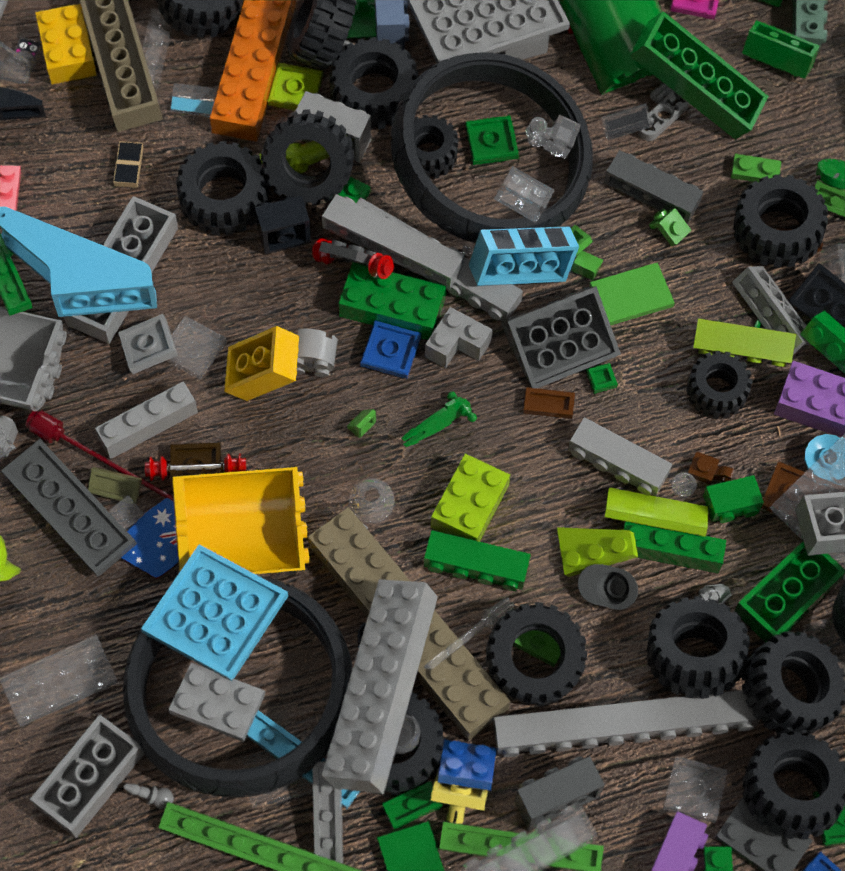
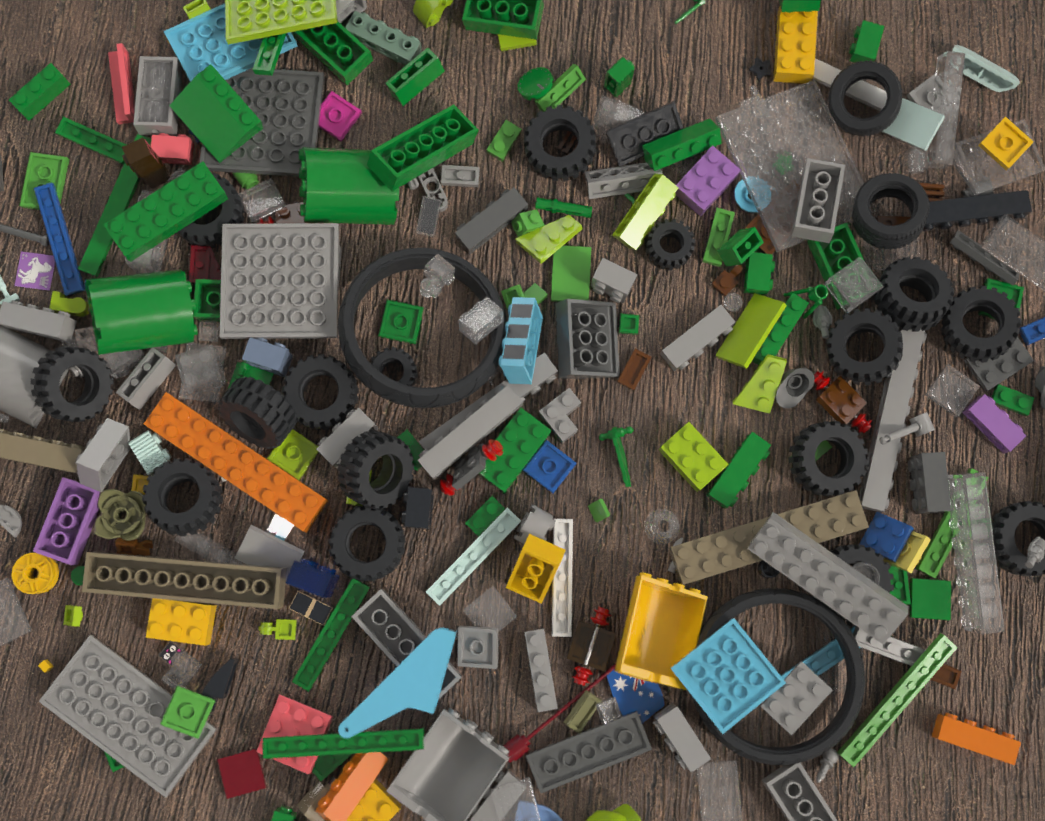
camera: 70 degrees left, 15 degrees up
(93, 142) = (284, 629): none -> lime plate
(102, 191) = (331, 635): none -> green plate
(121, 599) = (680, 738): none -> light grey brick
(161, 142) = (313, 579): none -> clear blue brick
(174, 94) = (267, 550): none -> light grey tile
(248, 303) = (473, 556): none -> light aqua plate
(265, 410) = (563, 580): none -> white tile
(304, 303) = (485, 516): none -> green plate
(489, 618) = (786, 478): clear piece -> none
(617, 653) = (841, 401): none -> reddish brown plate
(632, 761) = (920, 425): none -> light grey piece
(642, 334) = (613, 281): none -> light grey brick
(661, 253) = (549, 238): none -> lime wing
(690, 138) = (460, 176): none -> light grey plate
(705, 247) = (563, 207): none -> green pin
(736, 565) = (815, 294): none -> green plant
(754, 460) = (740, 246): none -> green brick
(756, 439) = (718, 236): none -> bright green plate
(767, 598) = (853, 285): none -> clear brick

